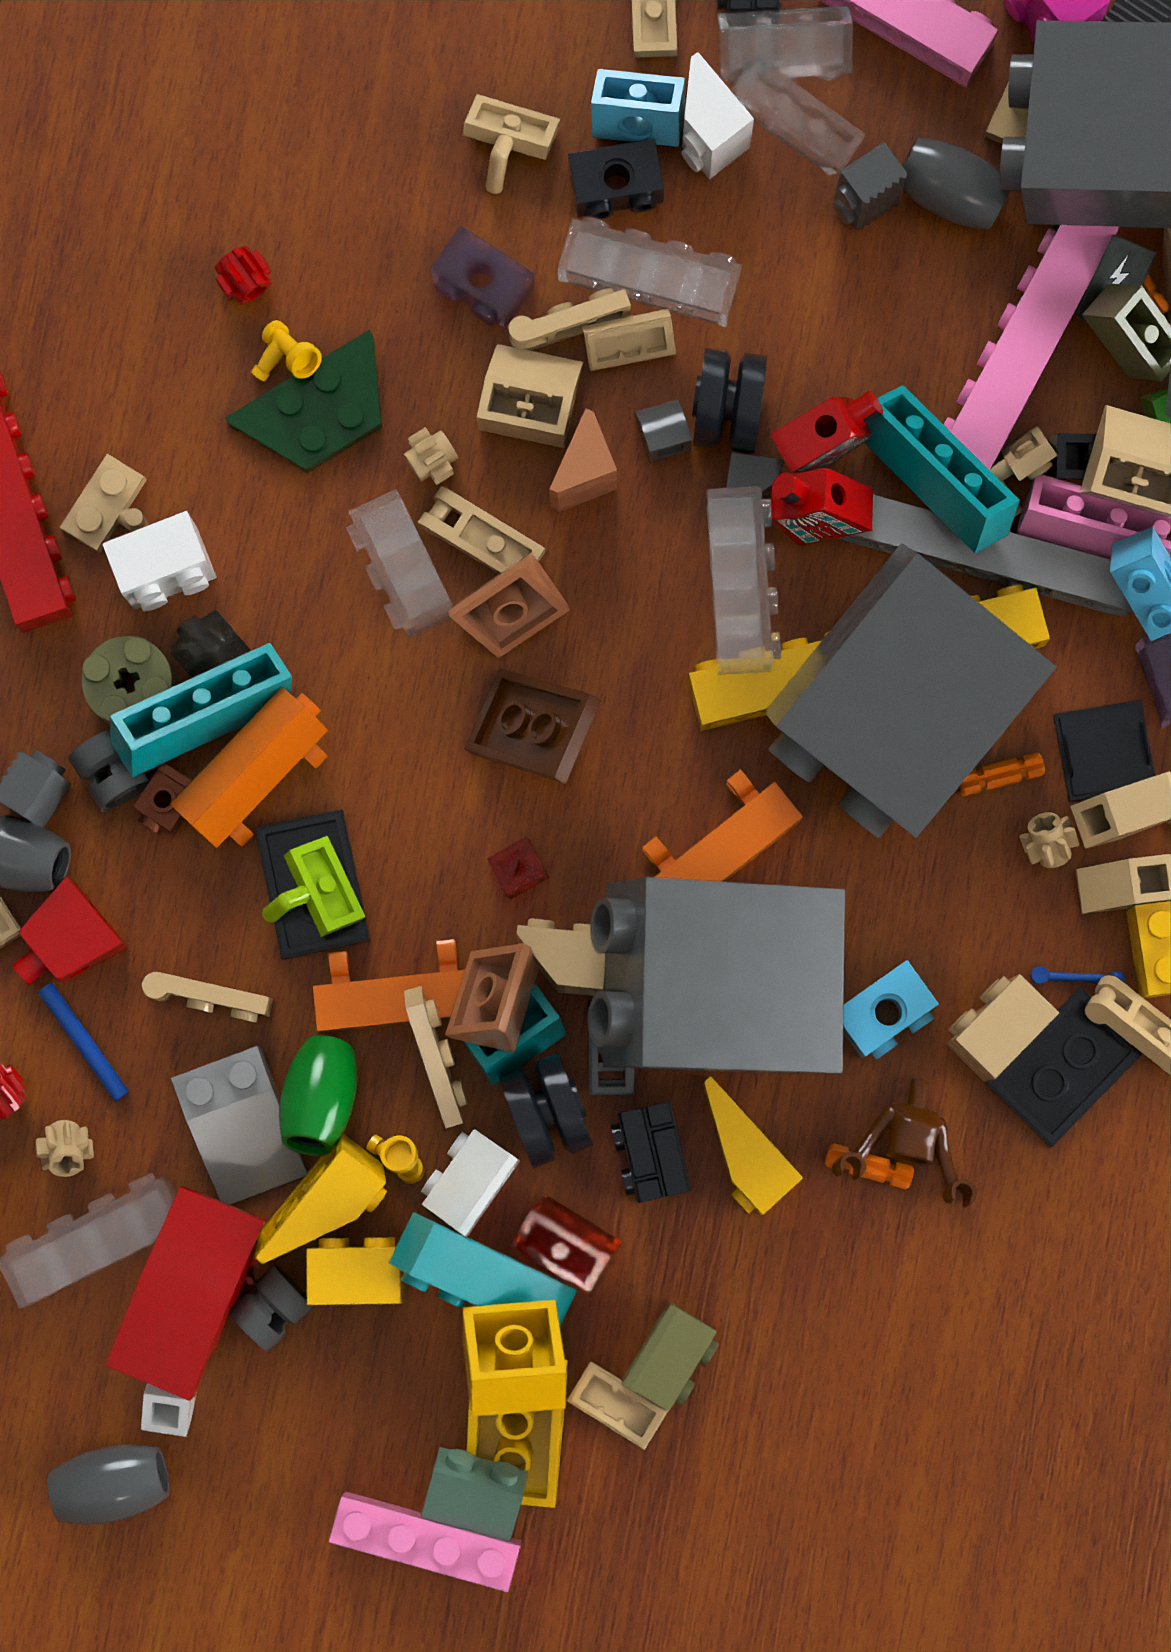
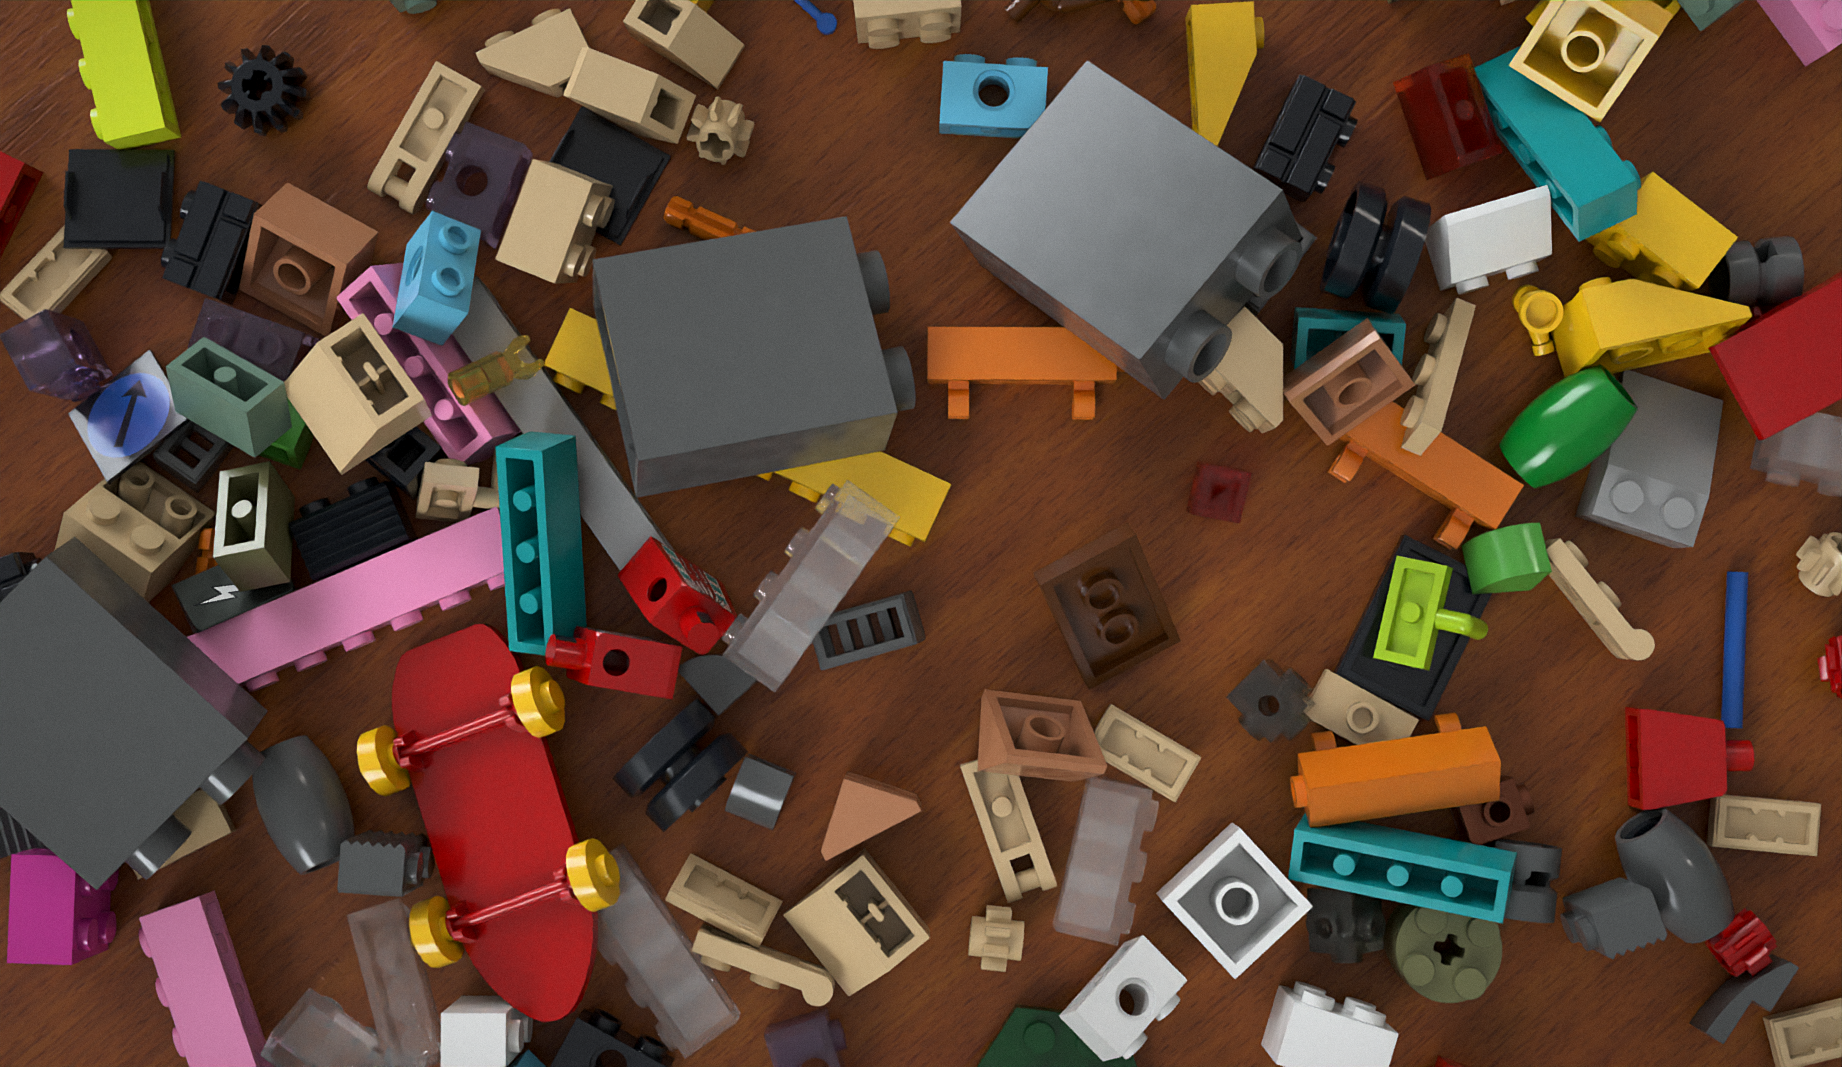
camera: 140 degrees left, 5 degrees up
(288, 974) = (1507, 559): none -> bright green brick
(294, 602) = (1234, 900): none -> white brick
(306, 795) = (1356, 712): none -> tan plate
(329, 459) = (1097, 1012): none -> white brick
(371, 753) = (1254, 697): none -> clear smoke brick
(429, 654) = (1145, 753): none -> tan plate
(661, 612) = (908, 617): none -> dark grey slope
(822, 273) = (496, 820): none -> red piece
(1063, 550) = (492, 372): none -> clear yellow bar
(1071, 383) = (352, 529): none -> black brick
(1105, 686) = (556, 223): none -> tan brick

